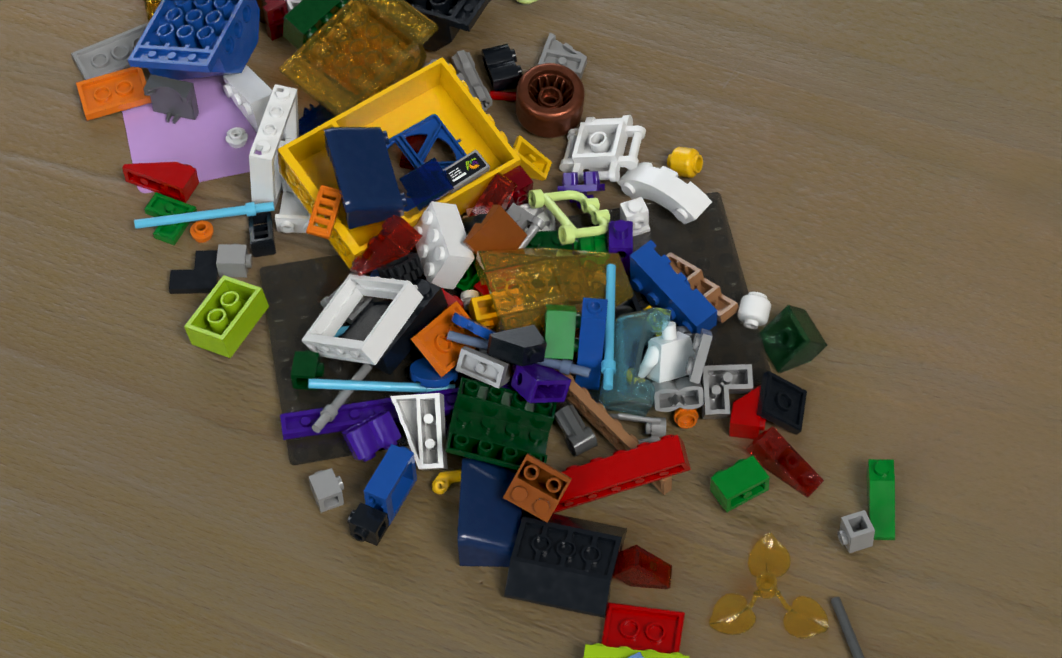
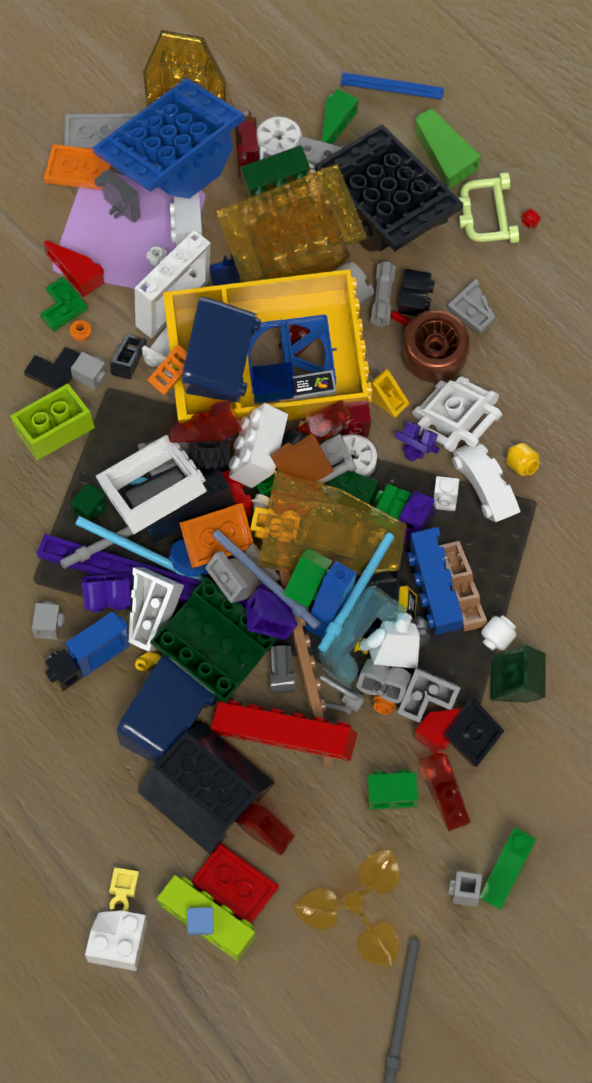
camera: 25 degrees right, 10 degrees up
(249, 208) = (128, 329): medium azure bar -> none
(472, 325) = (243, 537): blue tile -> none
(518, 346) = (264, 574): black slope -> none
(537, 488) = (206, 715): dark orange slope -> none
(568, 232) = (412, 464): yellowish green bar -> none
(701, 347) = (414, 659): light grey plate -> none

